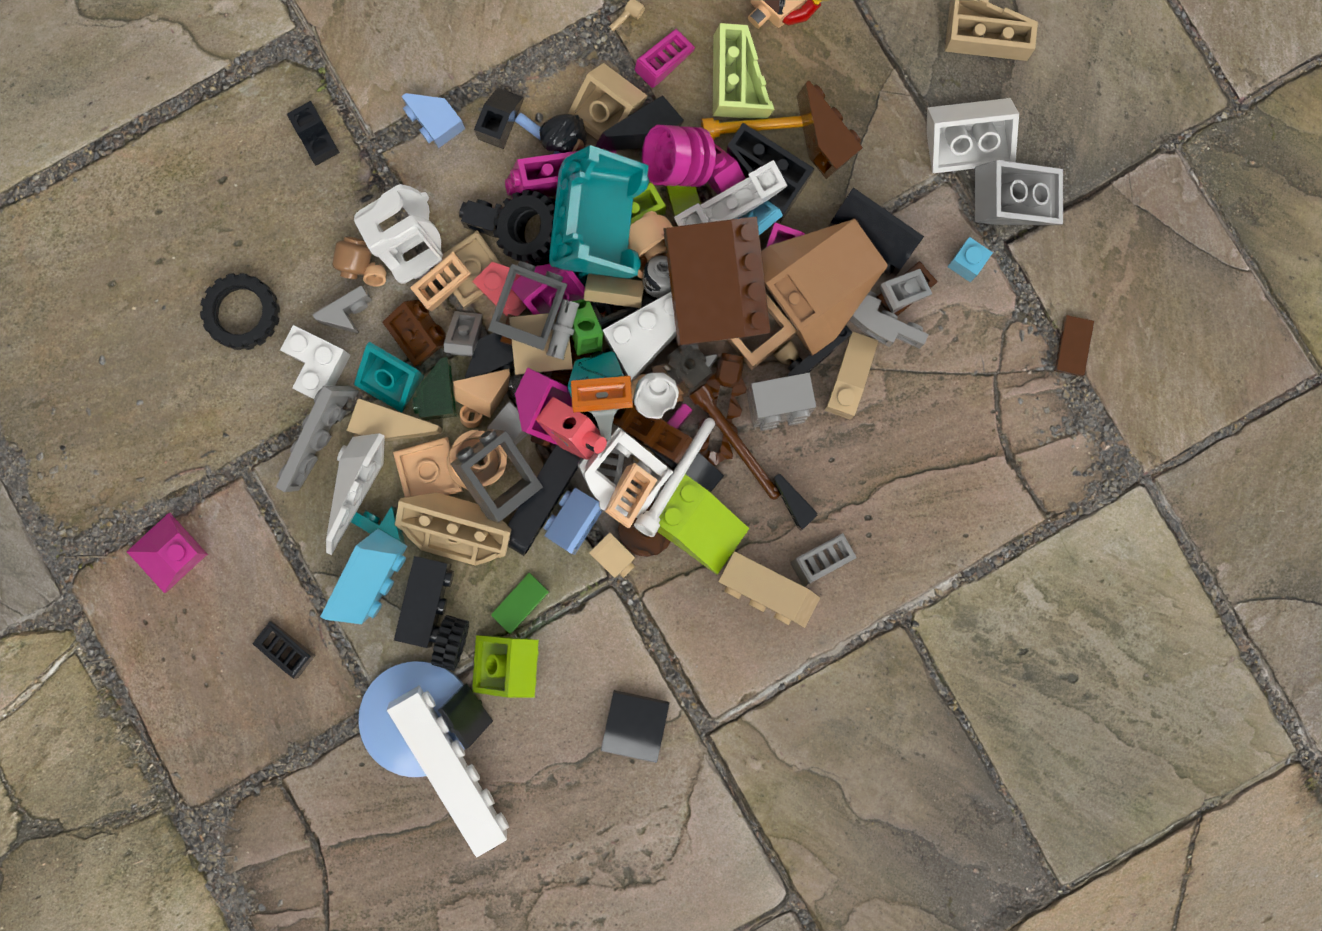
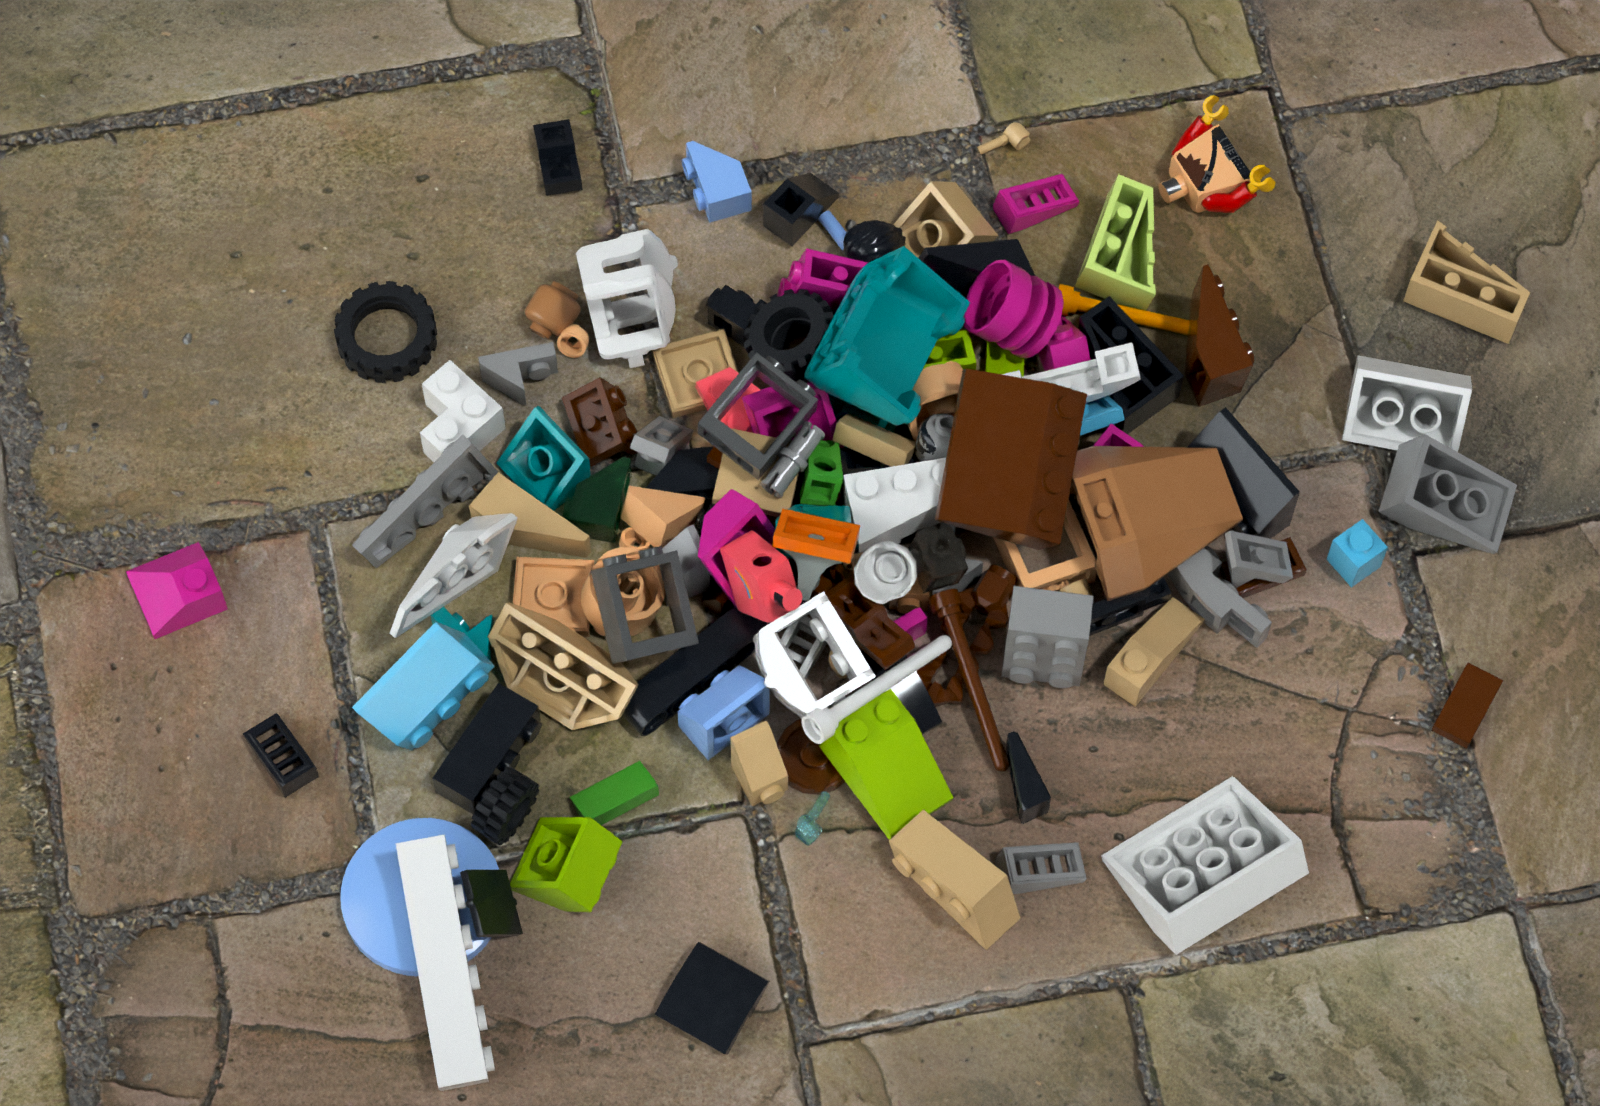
camera: 15 degrees right, 20 degrees down
(427, 280) = (650, 388): light nougat slope -> none
(646, 483) = (830, 664): light nougat slope -> none
(659, 584) = (807, 828): none -> clear light blue hand
(933, 521) = (1207, 864): none -> white slope

